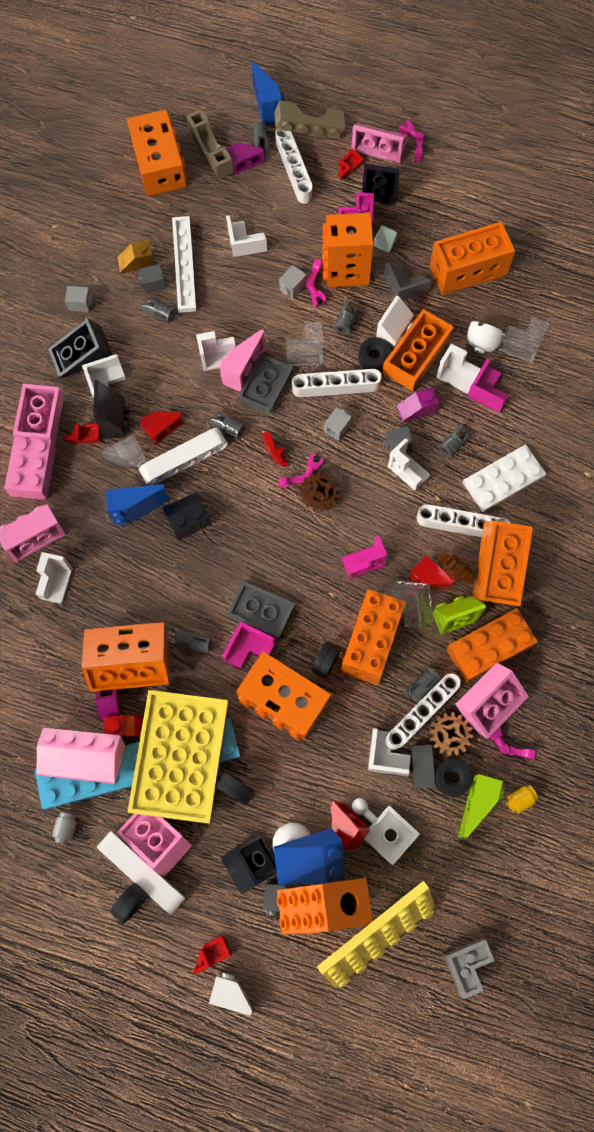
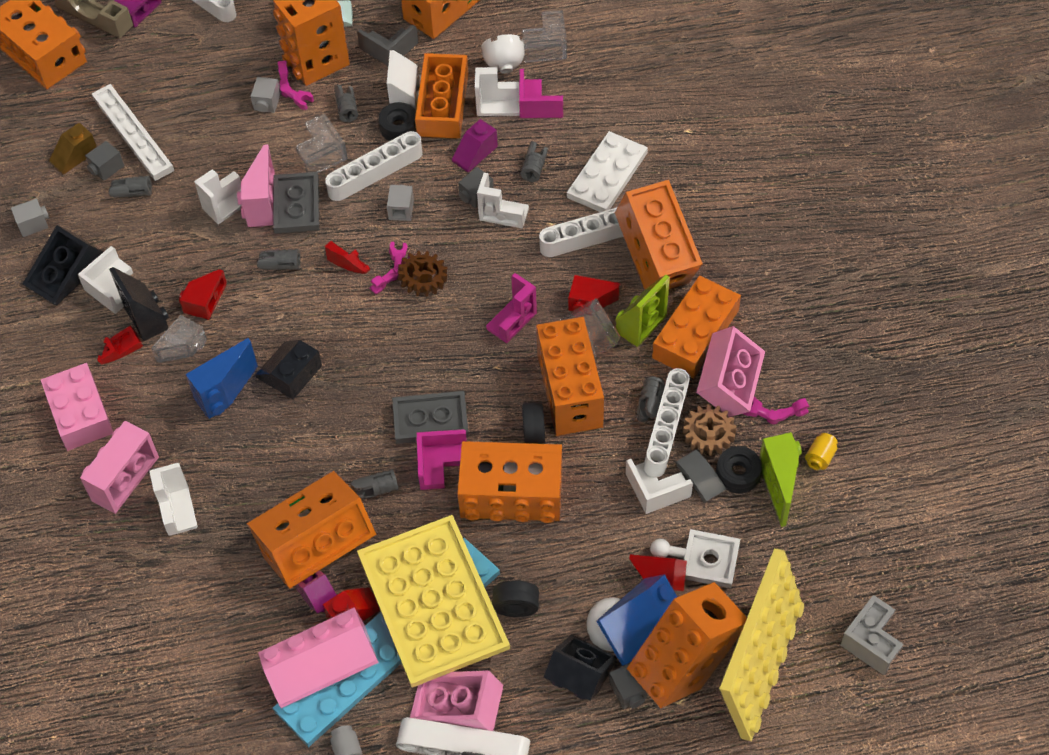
camera: 30 degrees left, 15 degrees down
(39, 412) = (52, 342): bright pink brick -> none
(183, 456) = (249, 310): white beam -> none
(241, 242) = (184, 85): white panel -> none
(456, 568) = (614, 269): reddish brown gear -> none

